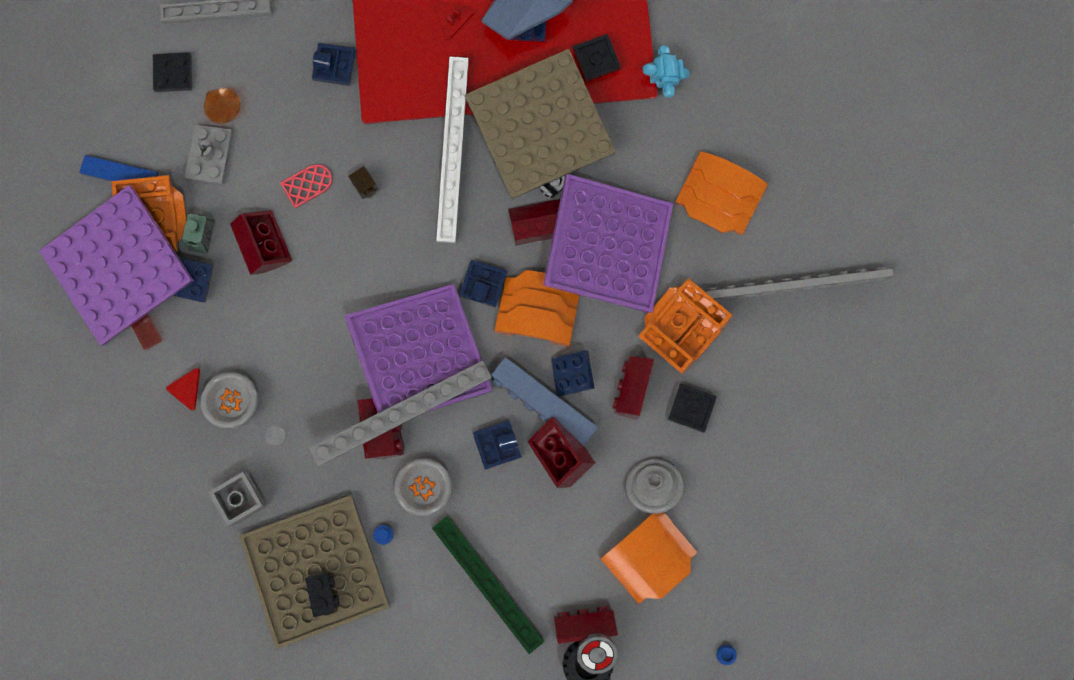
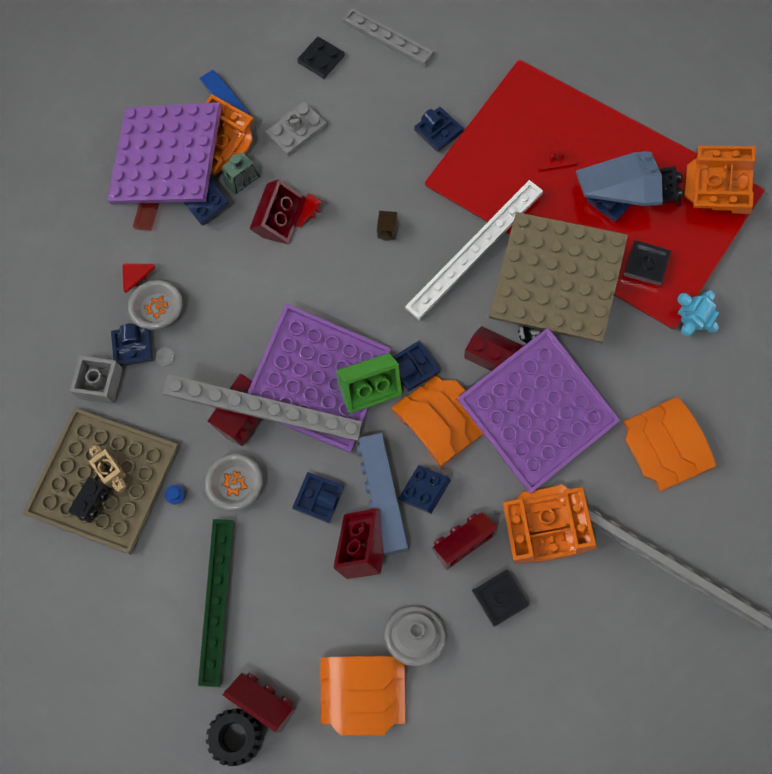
camera: 50 degrees right, 10 degrees down
(221, 105) = (334, 101): clear orange dish -> none
(238, 449) = (131, 345): none -> dark blue plate
(284, 216) = (310, 205): none -> red piece
(294, 555) = (114, 479): none -> tan piece
(327, 186) = (352, 188): coral window -> none
(462, 325) = (369, 382): none -> bright green slope
(597, 653) = (245, 732): tile -> none

